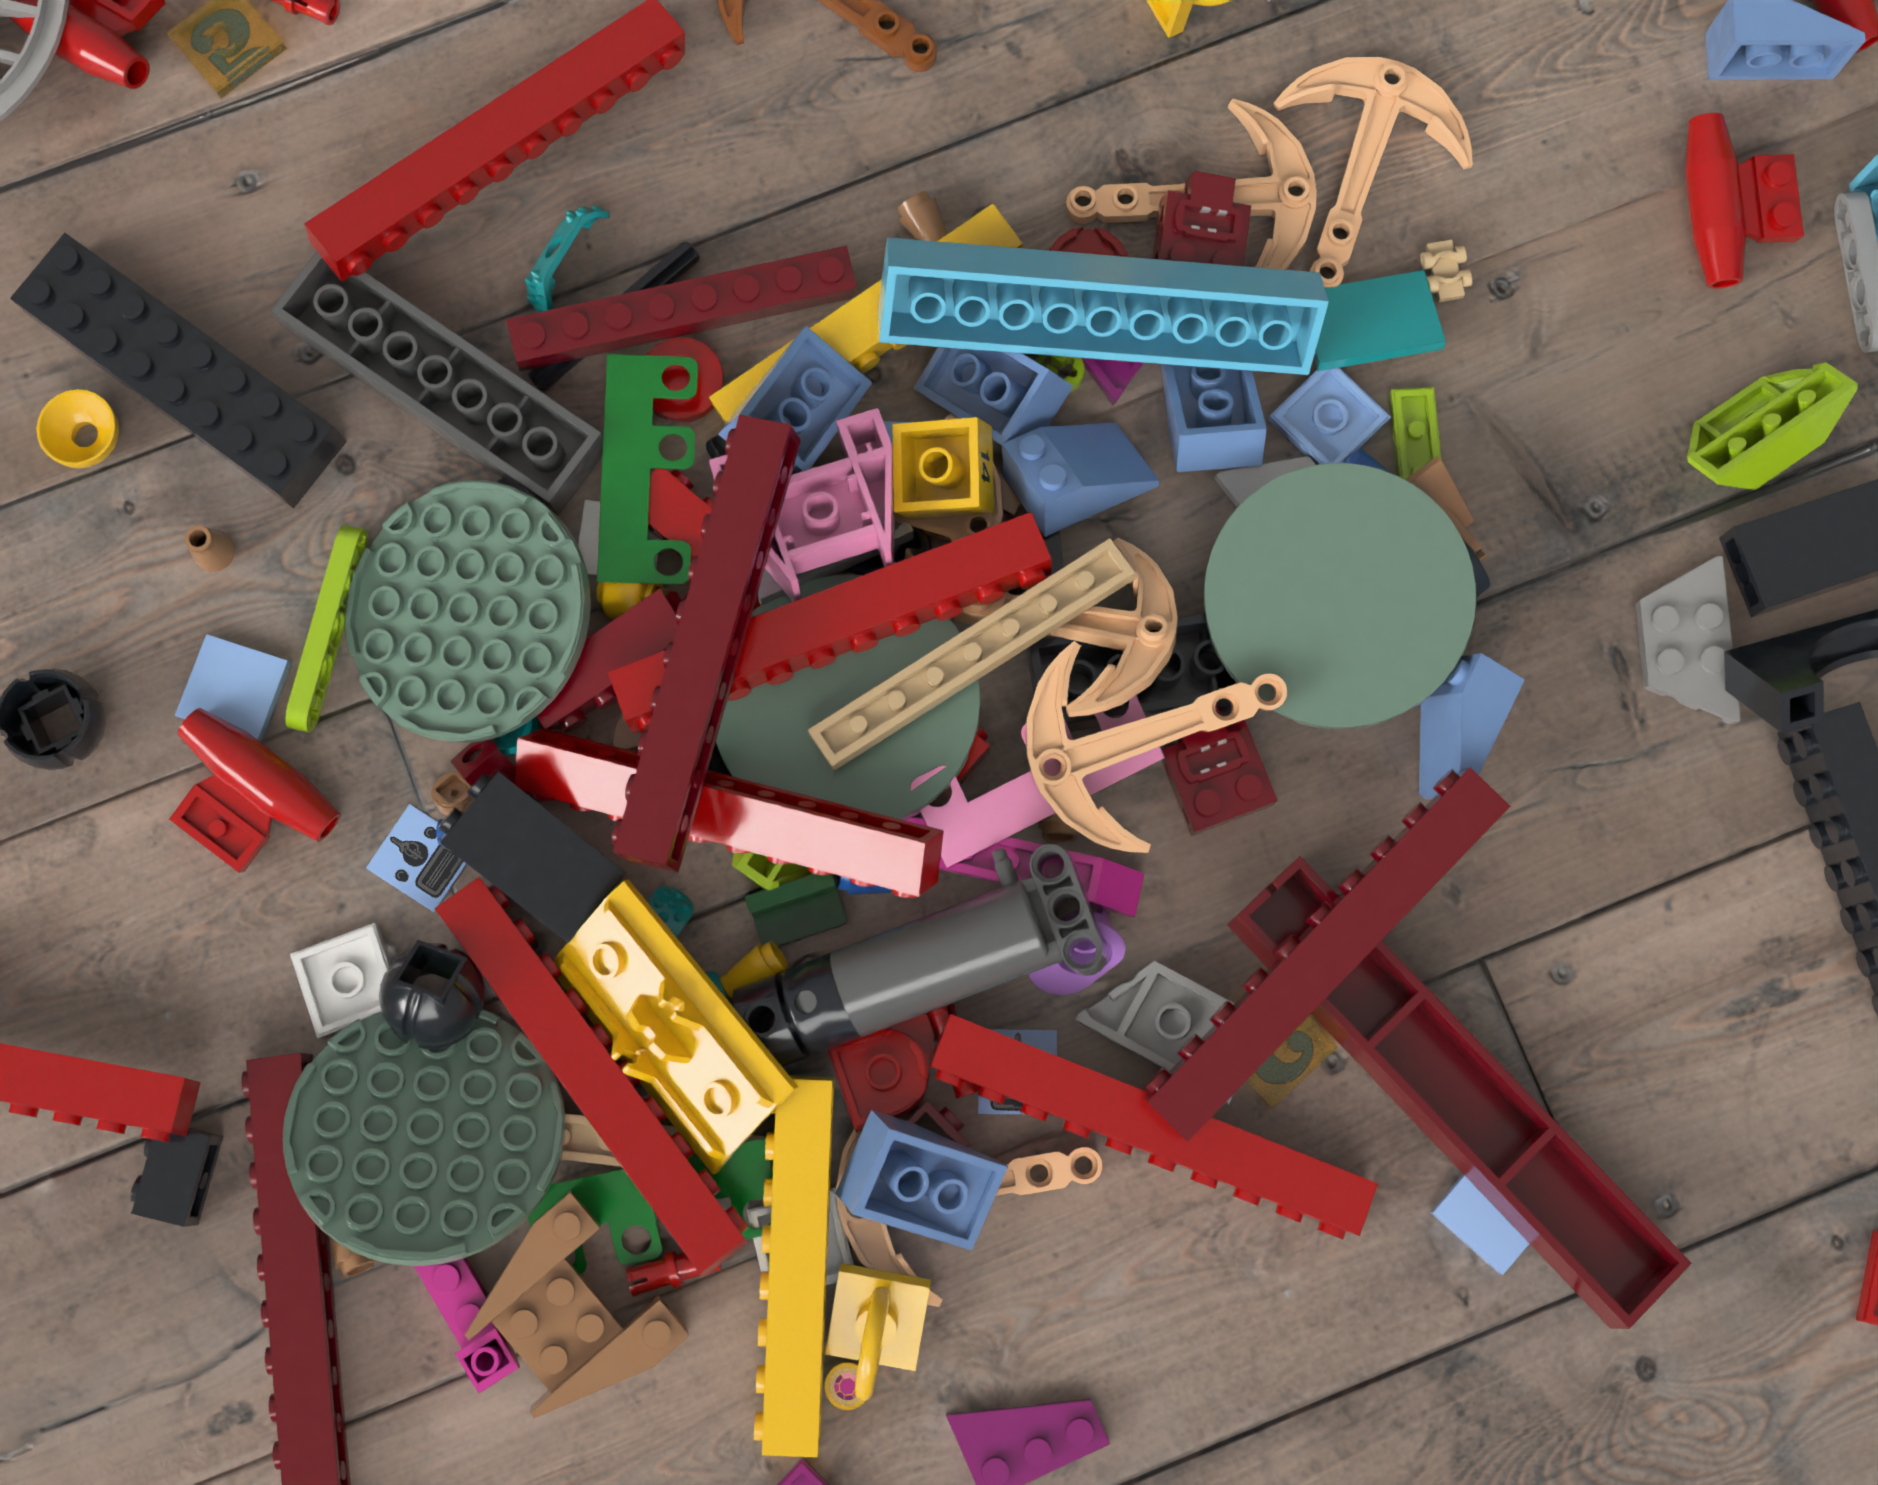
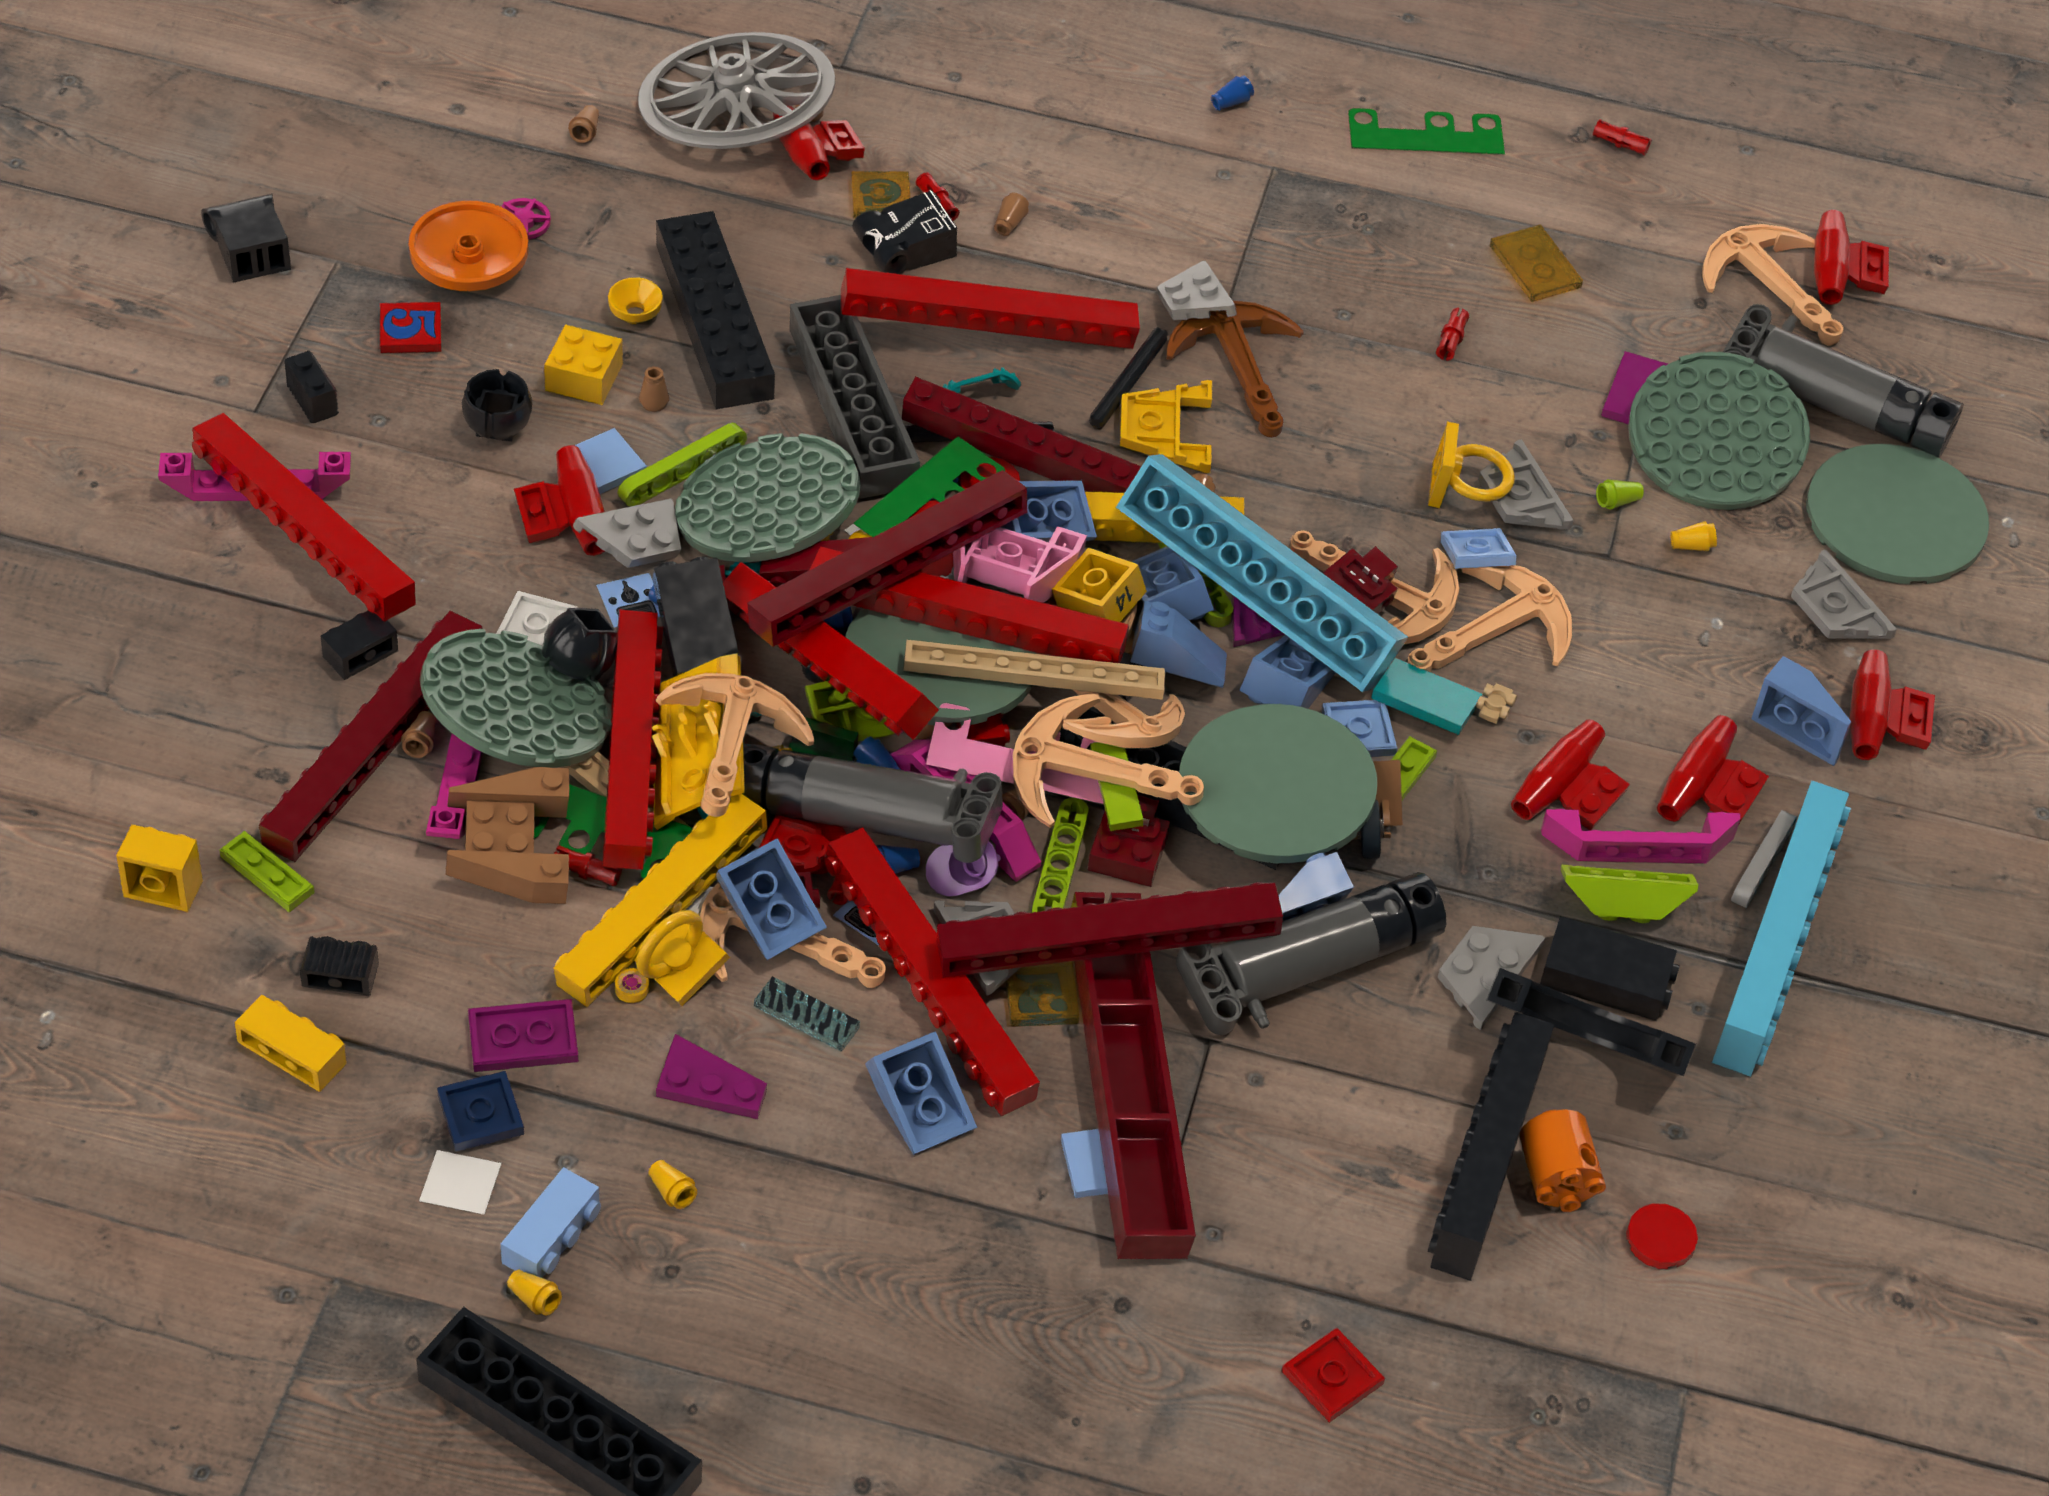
camera: 30 degrees right, 30 degrees down
(97, 572) = (583, 364): none -> yellow brick
(310, 86) = (908, 234): none -> black piece
(358, 775) = (635, 533): none -> light grey wing
(695, 970) = (740, 697): none -> light nougat piece
(716, 105) = (1128, 377): none -> black axle
(796, 155) = (1153, 424): none -> yellow wing
(988, 1006) = (900, 858): none -> blue cone
(1057, 1271) = (806, 1013): none -> clear light blue tile
(1166, 880) = (1062, 851): none -> lime beam
(1193, 756) = (1119, 801): none -> lime tile
(1256, 1284) = (921, 1093): none -> medium blue slope
(1276, 67) = (1478, 548): none -> light blue tile
(1563, 688) = (1310, 949): none -> dark grey piece
(1599, 318) = (1572, 778): none -> red plate
(1796, 284) = (1565, 831): none -> dark pink slope

